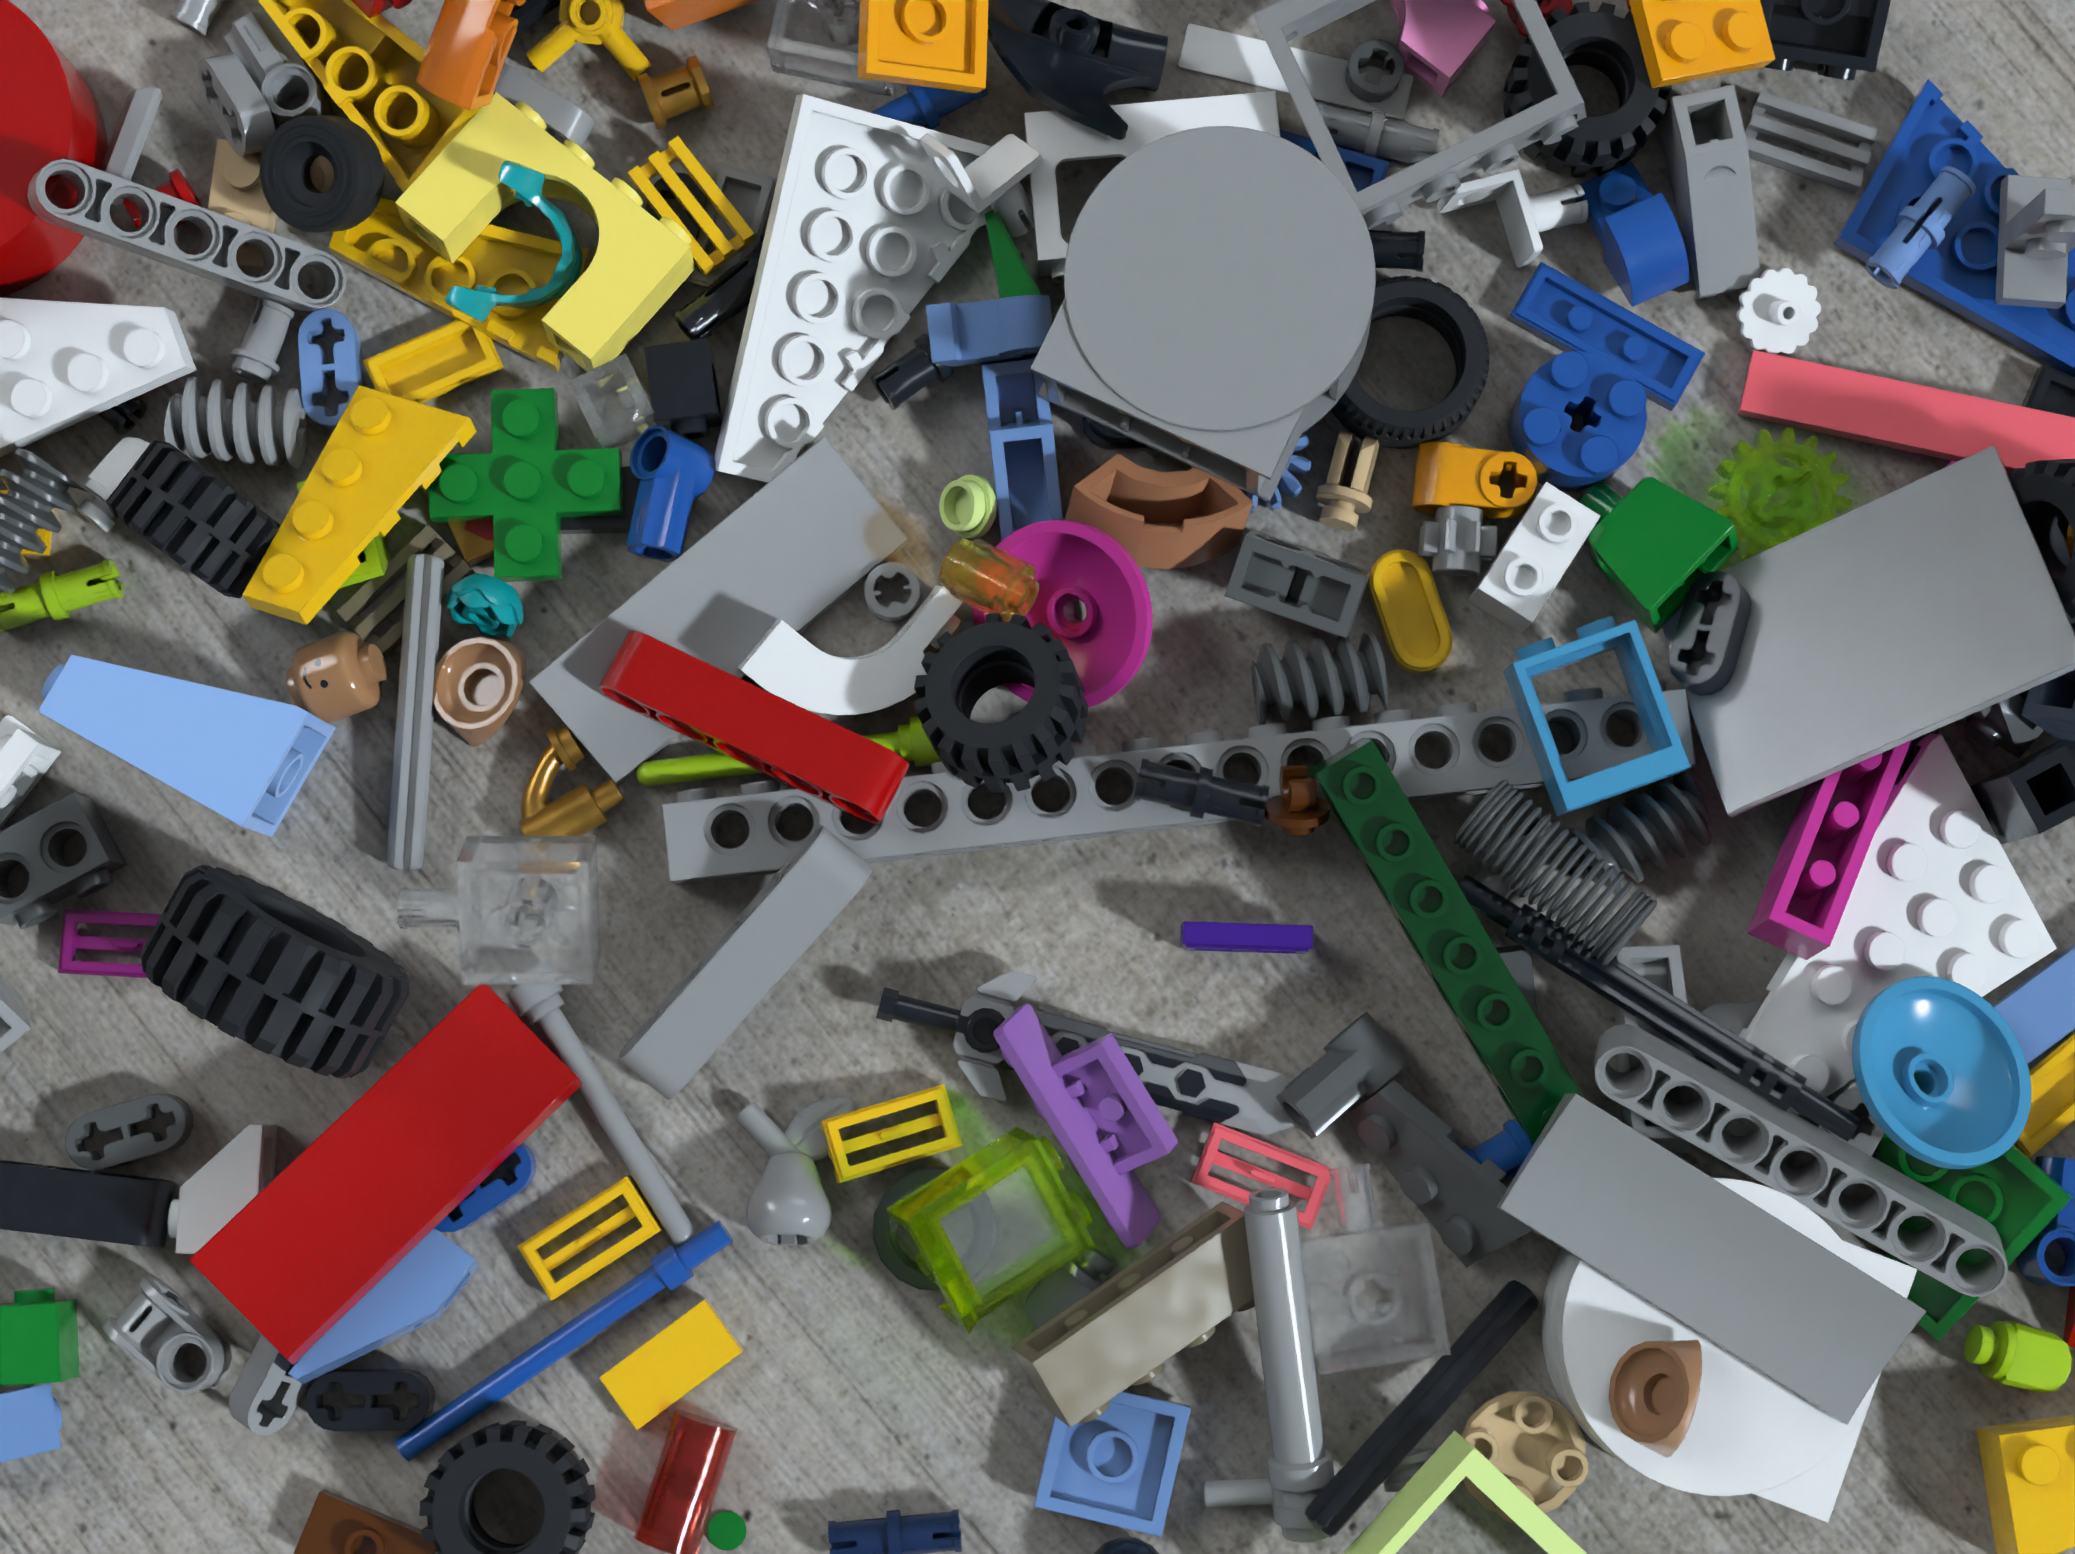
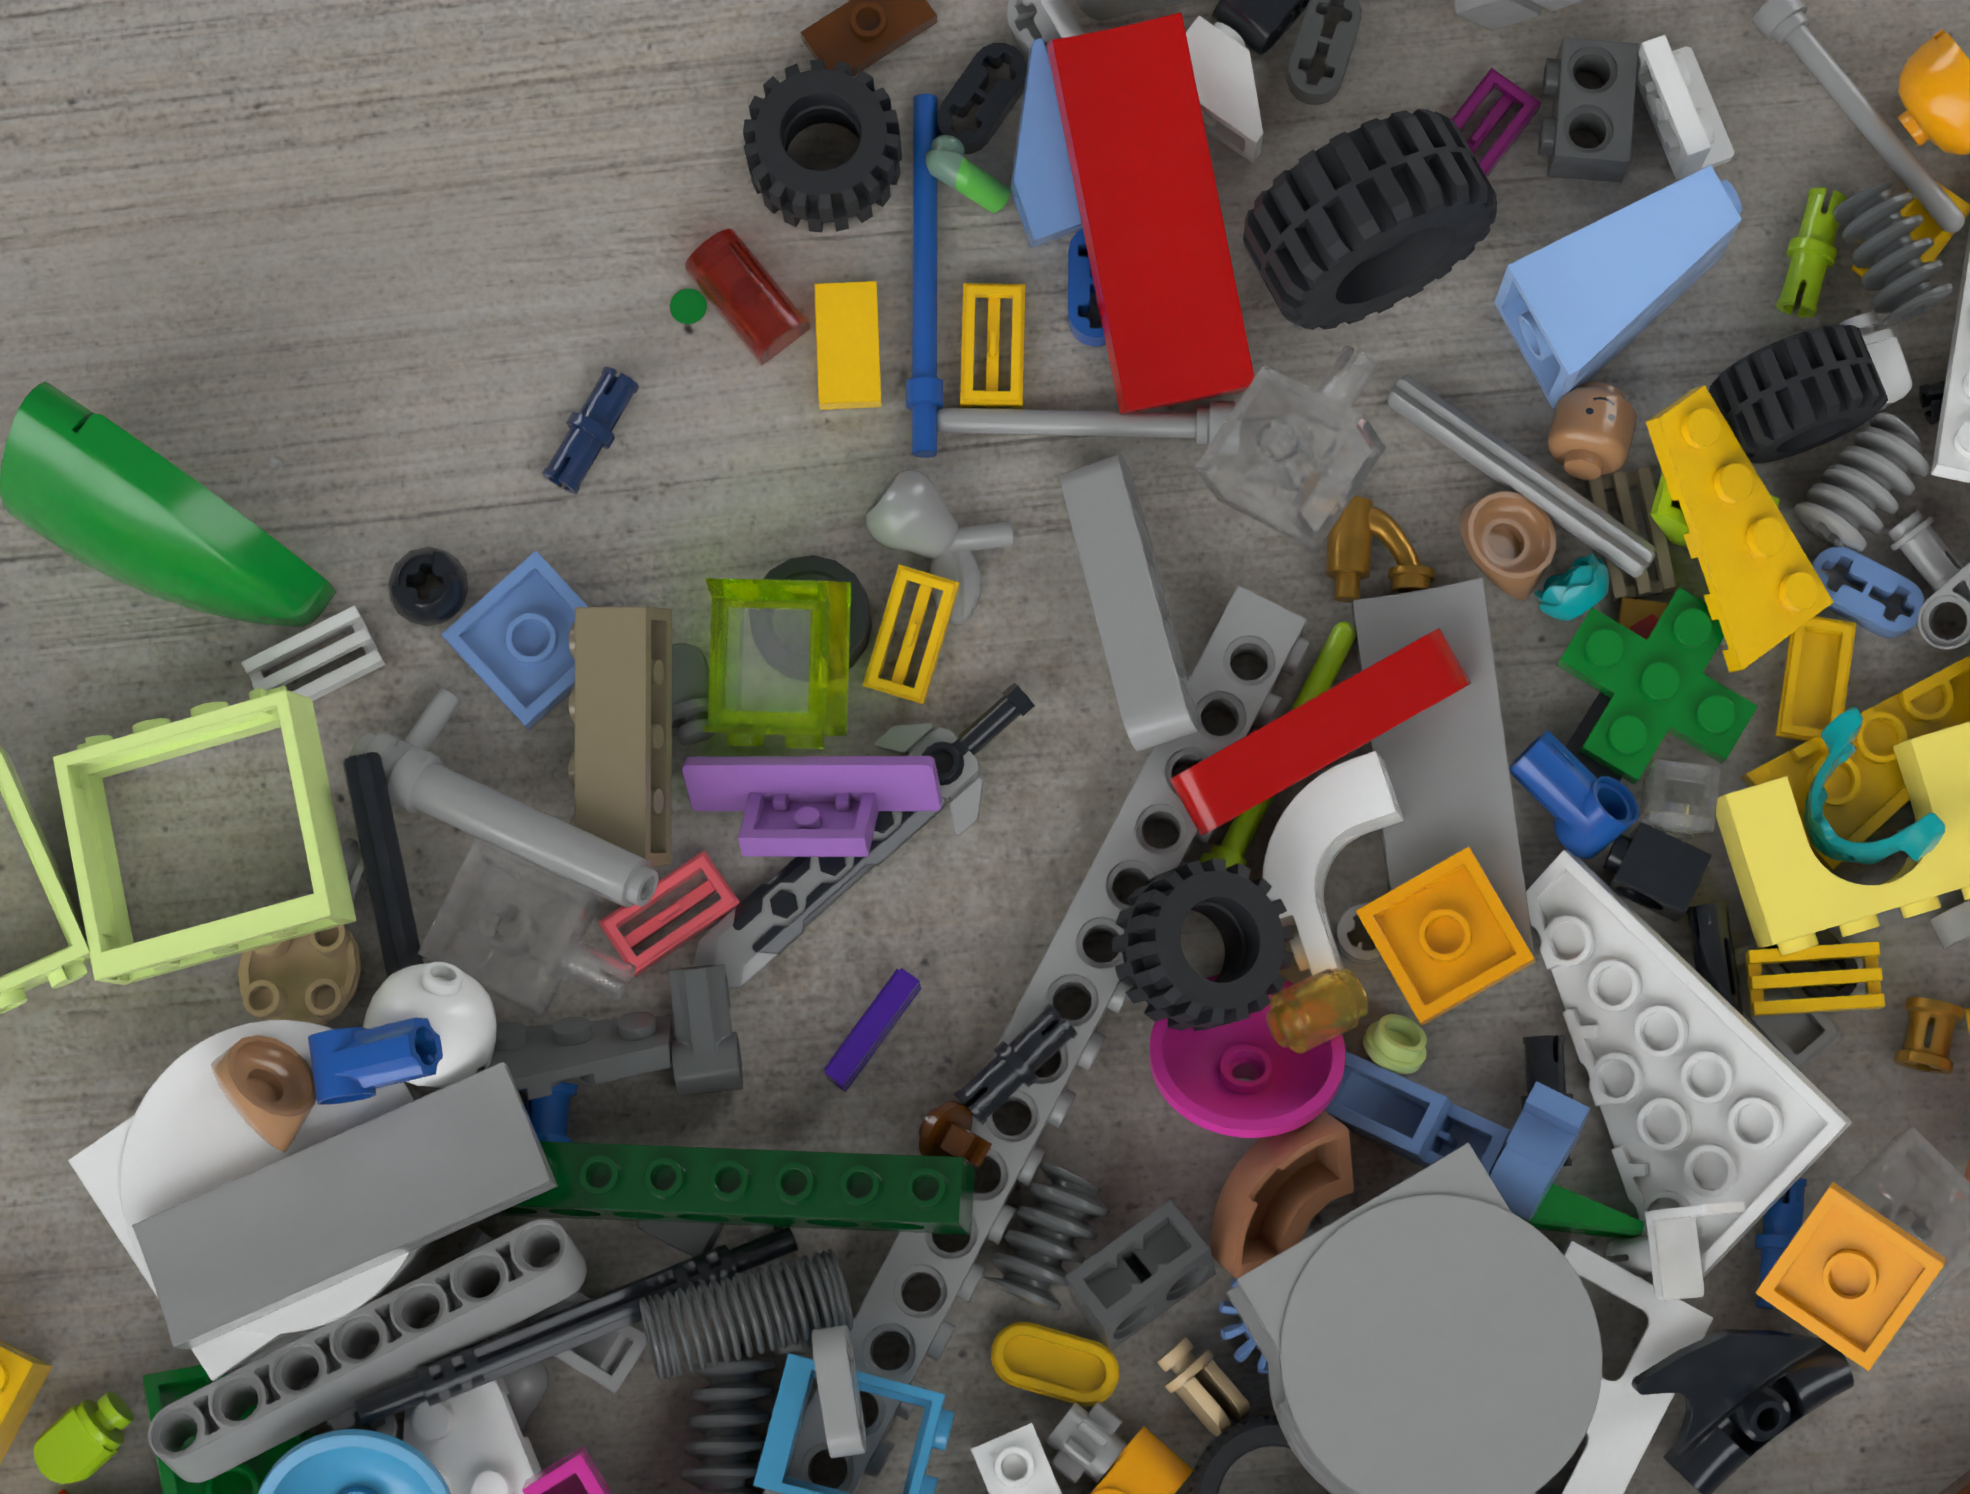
camera: 130 degrees right, 5 degrees down
(455, 1365) = (948, 165): none -> arm
(857, 516) = (1445, 936): none -> light orange plate
(1507, 1295) = (456, 1011): none -> white cylinder
(1573, 744) = (839, 1391): none -> light grey beam
(1585, 1327) = (358, 1060): none -> blue piece

